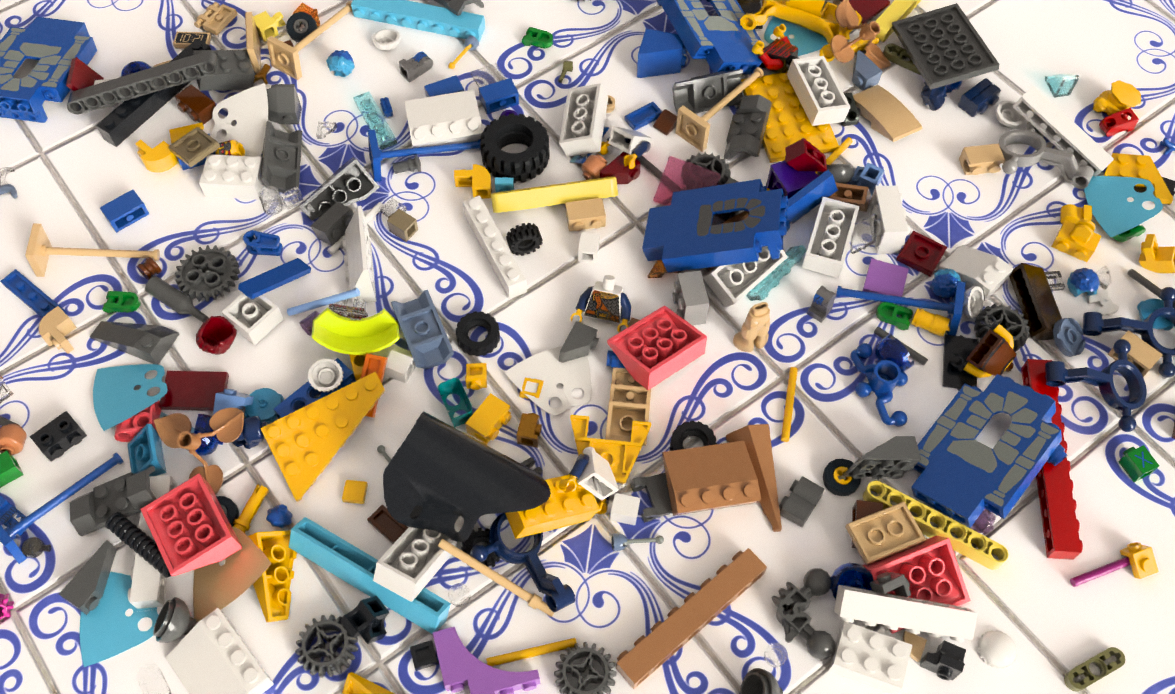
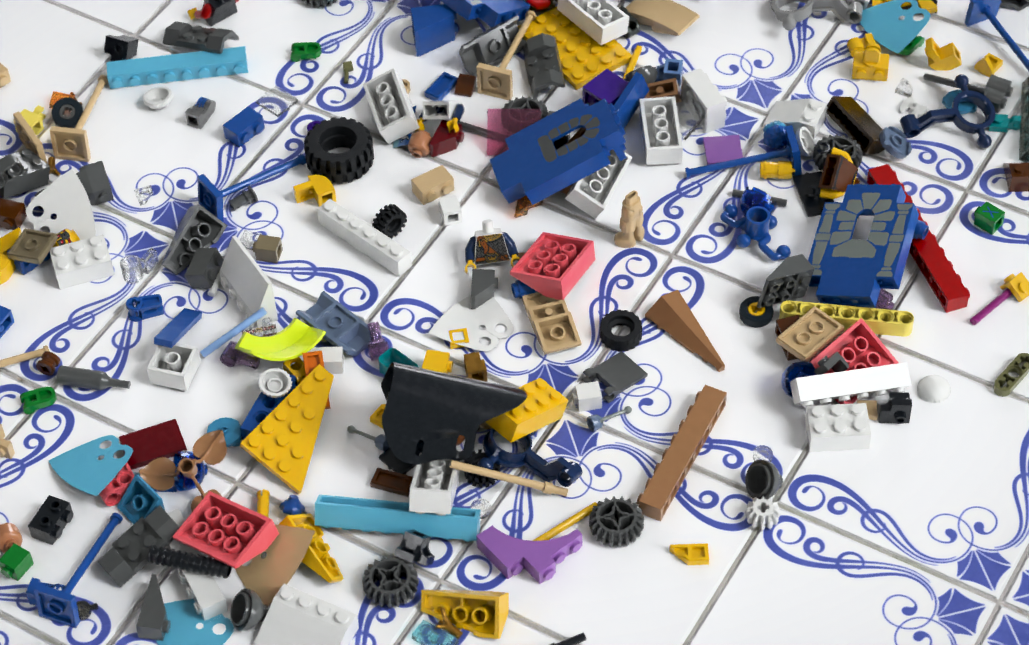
camera: 20 degrees left, 10 degrees down
(138, 340) = (79, 423): dark grey wedge -> none
(207, 273) = (107, 347): dark grey gear -> none
(215, 335) = (150, 391): dark red hair -> none
(231, 399) = (193, 433): medium blue brick -> none
(251, 433) = (232, 458): dark blue head -> none
(281, 158) = (120, 230): dark grey piece -> none
(340, 63) = (127, 131): dark azure piece -> none
(354, 491) = (346, 468): yellow tile -> none
(375, 120) = (185, 168): clear light blue plate -> none
(386, 107) = (192, 156): blue piece -> none
(423, 655) = (476, 558): black plate -> none
(444, 119) = (258, 147): white slope -> none
(448, 368) = (377, 344): none -> clear purple pin
(471, 44) = (243, 76): hinge -> none
(476, 376) = (405, 343): yellow bracket -> none
(477, 319) = (386, 299): black tyre -> none
(498, 96) = (296, 112): blue brick -> none
(504, 184) = (345, 186): medium azure plate -> none
(553, 194) = (395, 177): light yellow beam -> none
(594, 475) = (554, 375): white torso -> none
(619, 454) = (553, 365): yellow wing -> none
(691, 297) = (563, 216): light grey brick -> none
(710, 478) = (649, 347): medium nougat slope -> none
(772, 280) = (626, 181): clear light blue plate -> none
(789, 404) = (686, 273): yellow bar -> none
(801, 501) = (731, 340): dark grey brick -> none
(805, 157) = (610, 69): dark red slope -> none
(816, 583) = (769, 423): dark grey piece -> none
(821, 304) = (678, 185): flat silver leg -> none
(887, 313) = (739, 175): green plate -> none
(921, 253) = (744, 119): dark red tile -> none
(981, 159) = (762, 26): tan brick -> none
(1055, 280) = (866, 103): clear tile -> none
(1057, 375) = (898, 171): dark blue piece -> none
(1083, 281) = (888, 95): blue piece -> none
(1141, 353) = (954, 138): tan brick -> none

